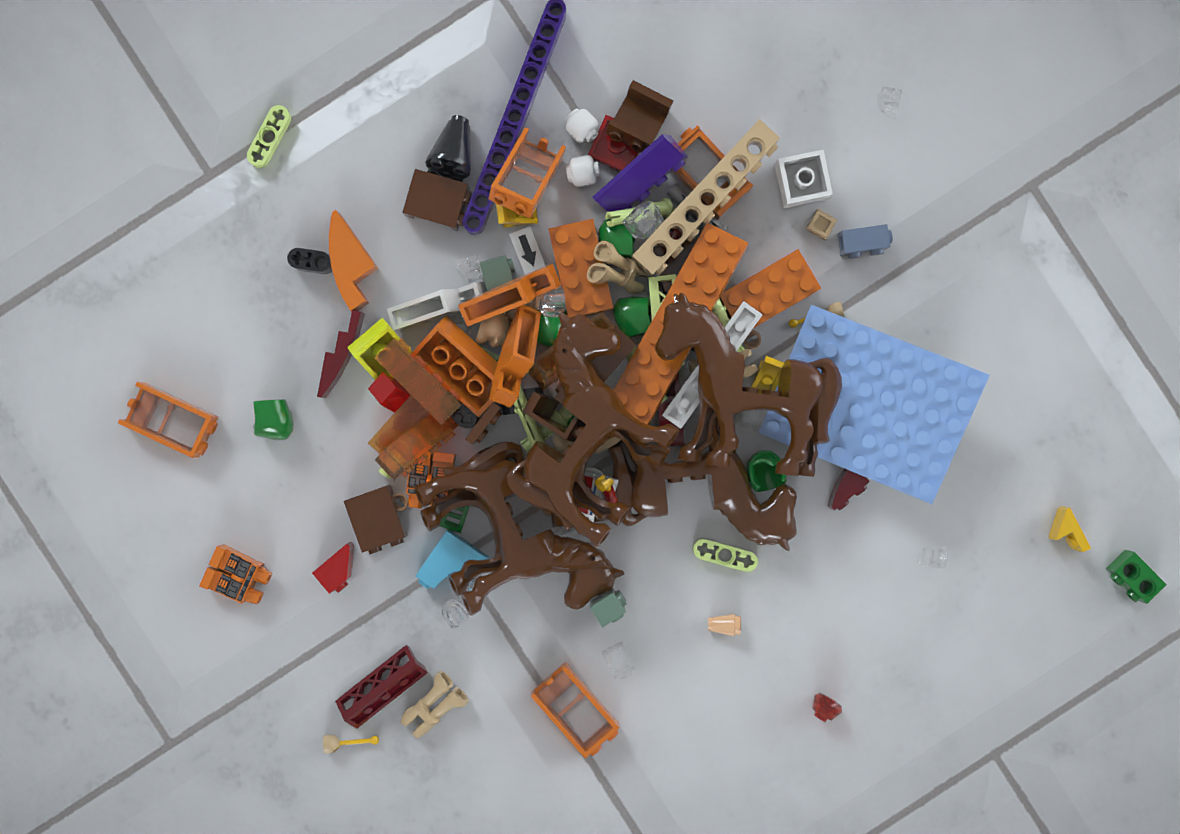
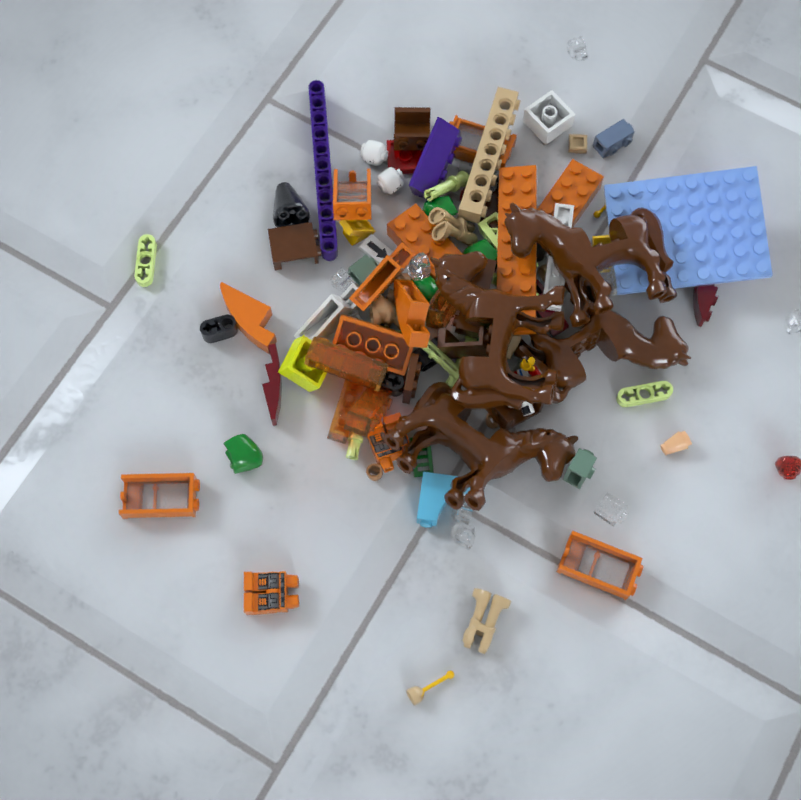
camera: 30 degrees left, 20 degrees down
(336, 569) = (349, 548): red slope -> none
(375, 520) = (363, 492): reddish brown panel -> none
(382, 691) = (437, 626): dark red fence -> none
(389, 392) = (327, 386): red slope -> none
(643, 220) = (453, 184): clear brick -> none
(762, 469) = (640, 313): green piece -> none

